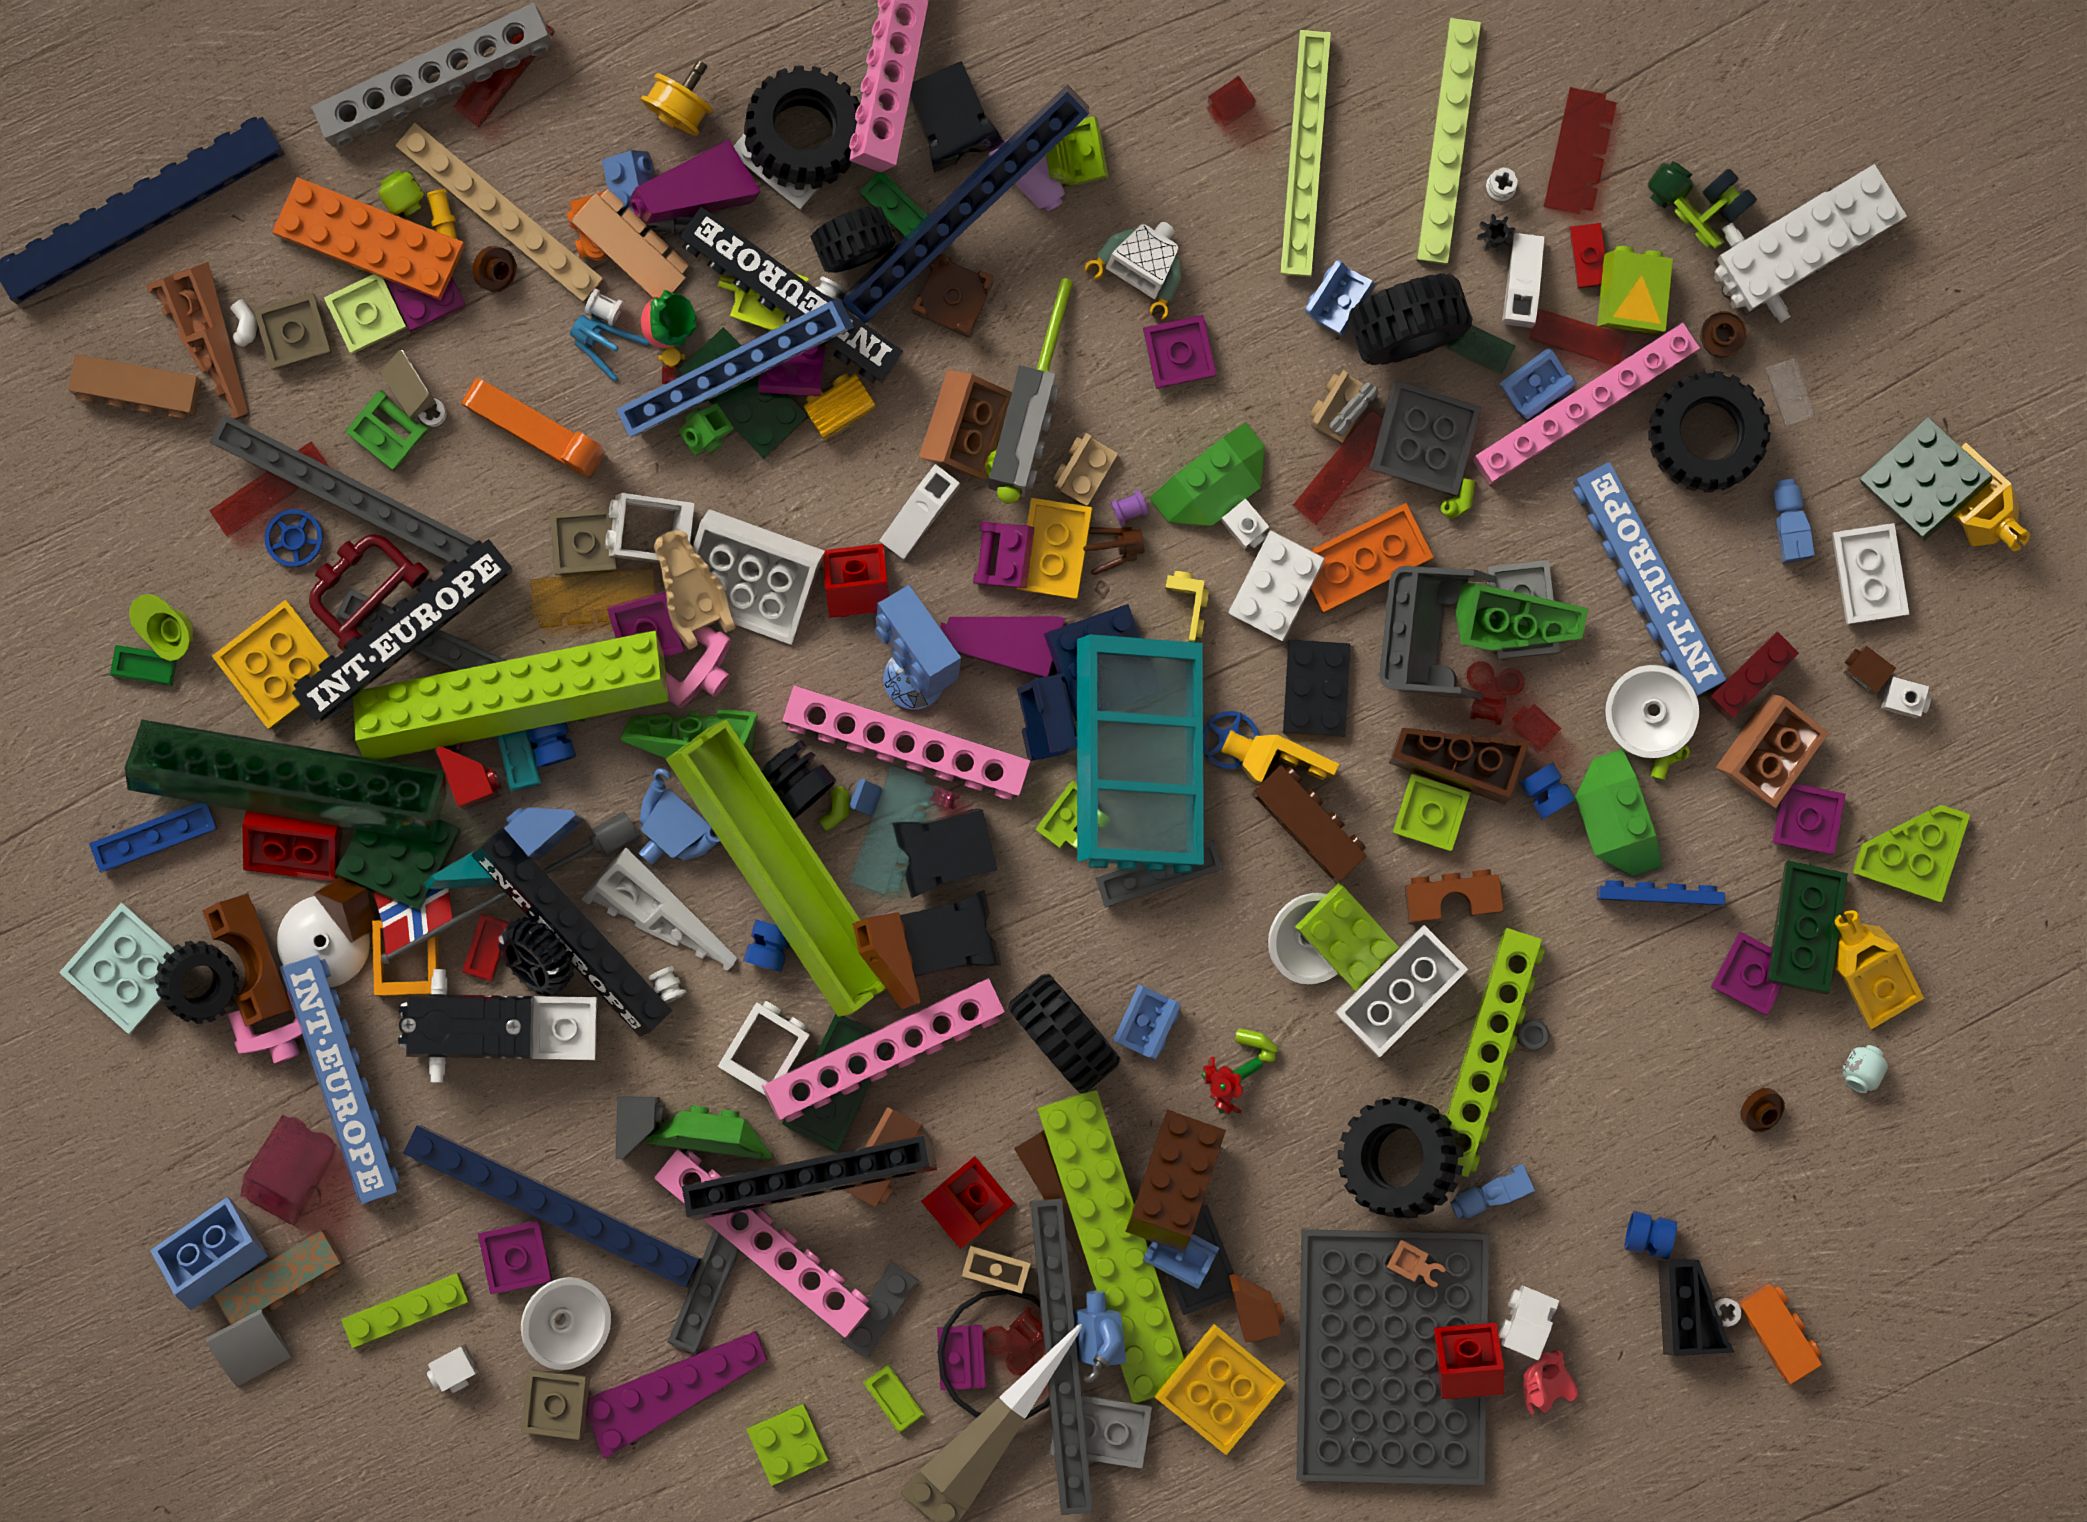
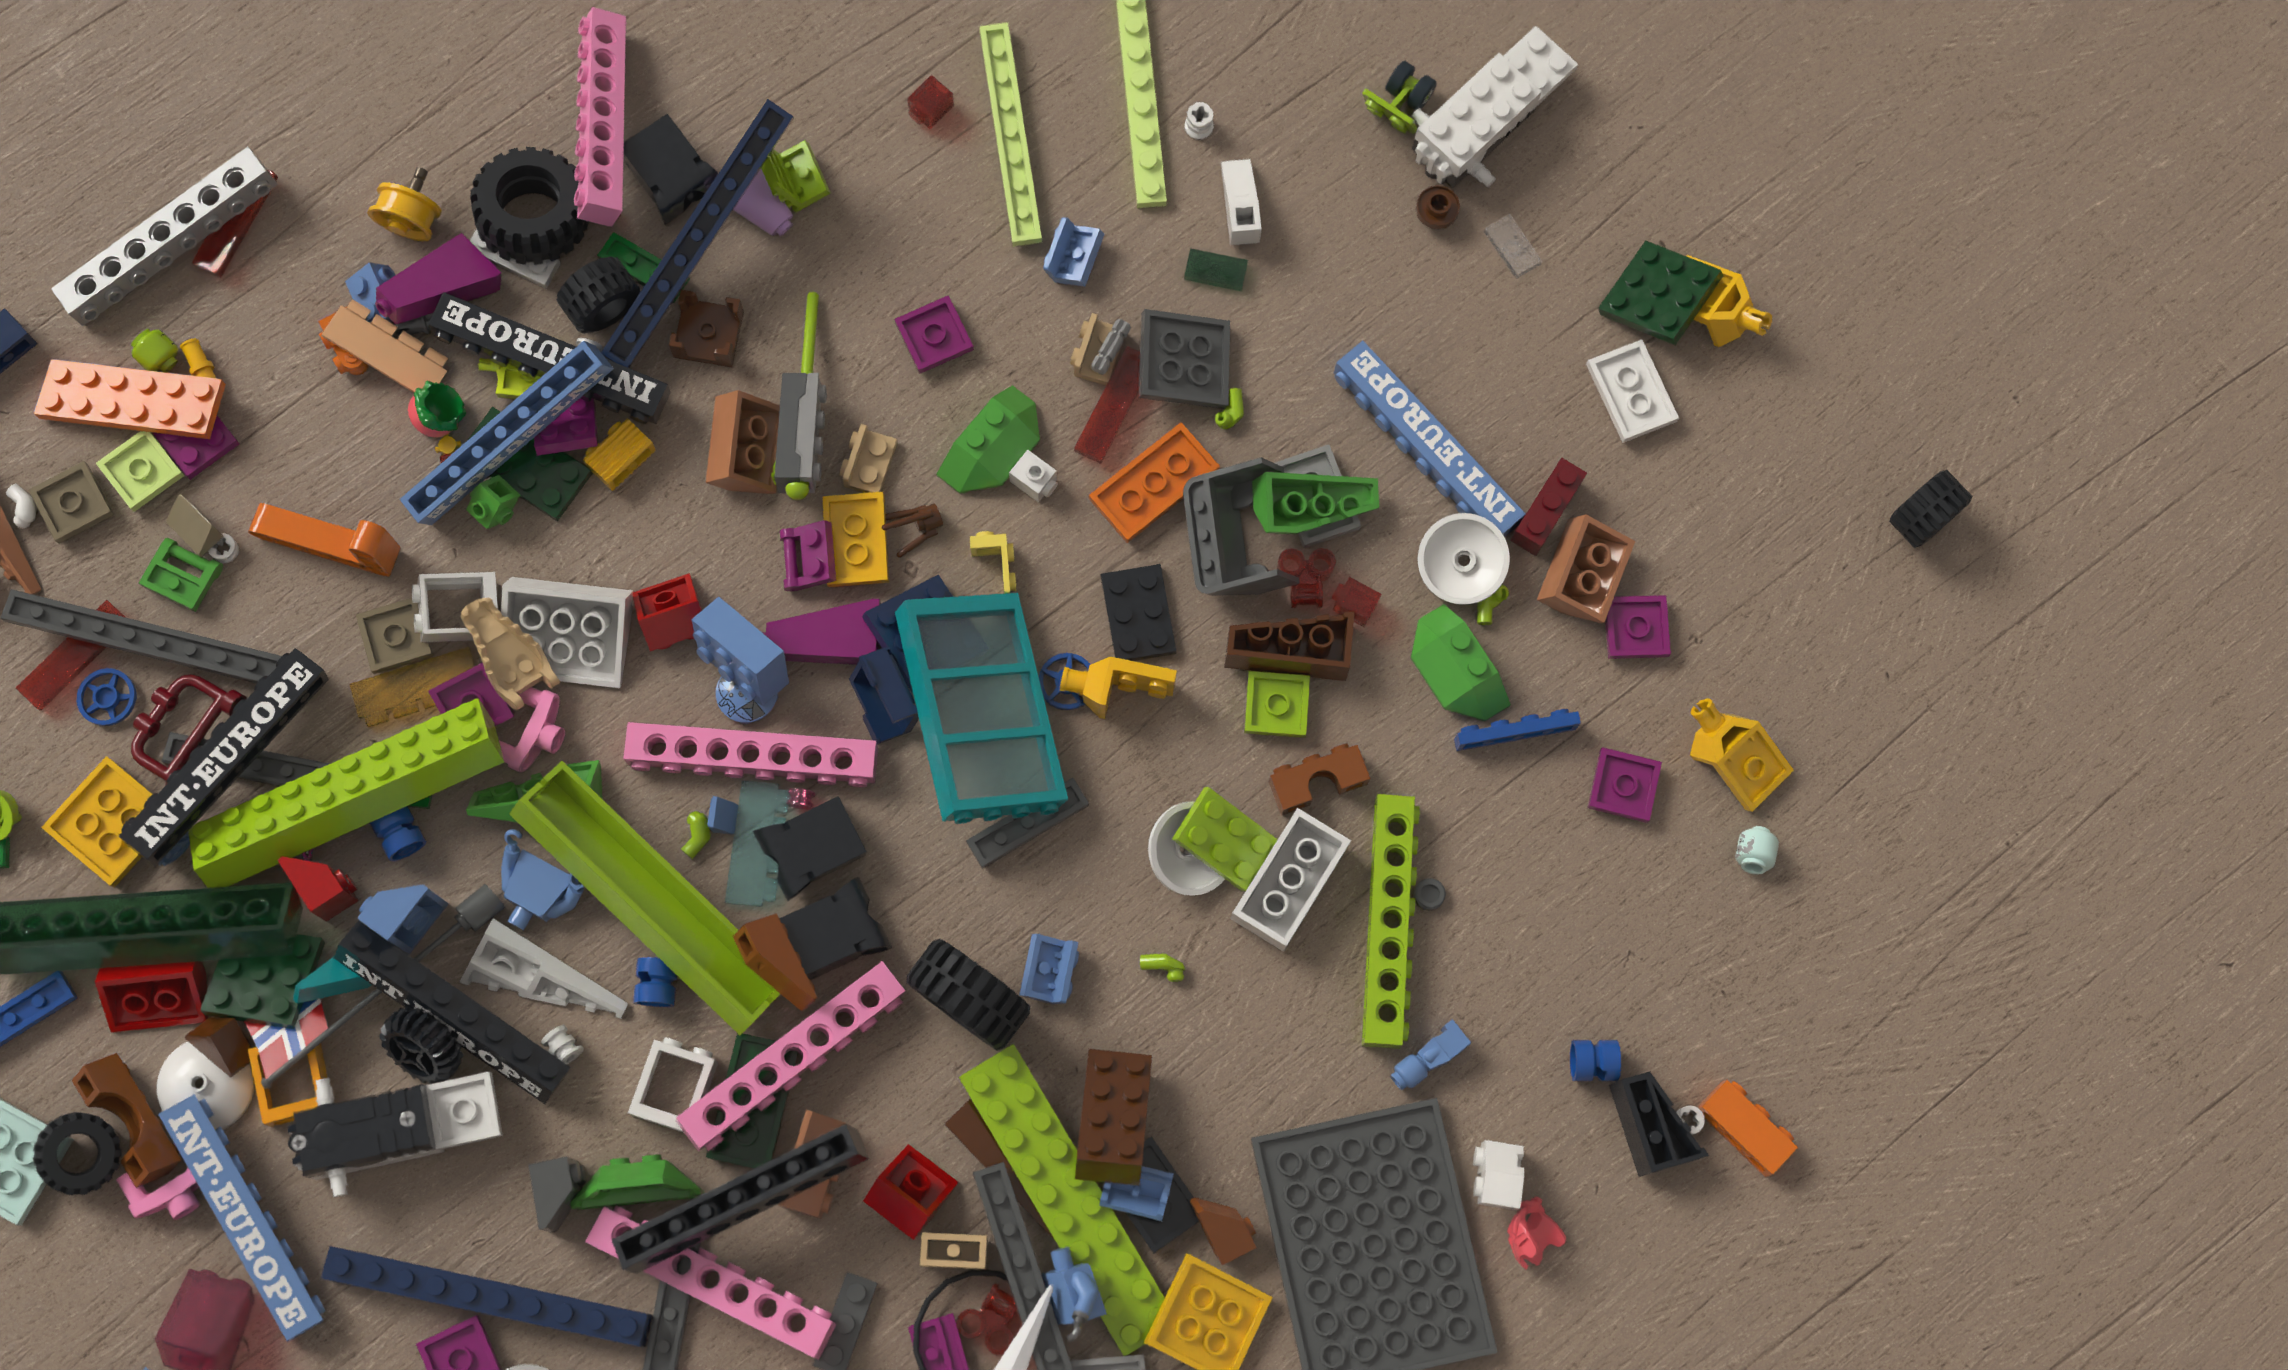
camera: 20 degrees left, 10 degrees down
(484, 949) = (370, 1057): red tile -> none
(494, 268) = (258, 400): reddish brown plate -> none
(499, 212) = (256, 351): tan plate -> none
(518, 760) = (369, 857): teal plate -> none
(587, 332) = (364, 439): dark azure plant -> none
(604, 307) = (372, 413): white bush -> none
(795, 780) = (649, 813): black wheel -> none
(920, 511) = (718, 531): white slope -> none
(1061, 819) = (920, 794): lime plate -> none
(1129, 507) = (919, 486): medium lavender bush -> none
(1143, 260) = (880, 257): white torso -> none
(1226, 1083) = (1142, 1009): red plant -> none
(1277, 585) = (1077, 525): white plate -> none
(1309, 824) = (1161, 738): reddish brown brick -> none
(1362, 1152) = (1293, 1030): black tyre -> none
(1410, 319) = (1143, 247): black tyre -> none
(1410, 1262) = (1367, 1143): nougat plate -> none
(1469, 1360) = (1450, 1228): red slope -> none
(1486, 236) = (1204, 173): black gear -> none
(1537, 384) = (1277, 289): medium blue bracket -> none
(1547, 790) = (1377, 647): blue wheel -> none
(1574, 156) = (1262, 94): clear red windscreen -> none
(1578, 337) = (1304, 240): clear red plate -> none
(1586, 404) = (1326, 297): bright pink brick -> none
(1587, 254) = (1295, 167): red plate -> none
(1635, 291) = (1346, 186): lime brick -> none
(1670, 183) = (1350, 86): dark green head -> none
(1738, 402) = (1457, 259): black tyre -> none
(1762, 1110) = (1670, 912): reddish brown plate -> none
(1792, 524) = (1548, 362): medium blue piece -> none
(1806, 927) = (1664, 728): dark green plate -> none
(1868, 669) = (1655, 477): reddish brown brick -> none
(1906, 698) = (1697, 495): white brick -> none
(1916, 853) = (1747, 637): lime plate -> none

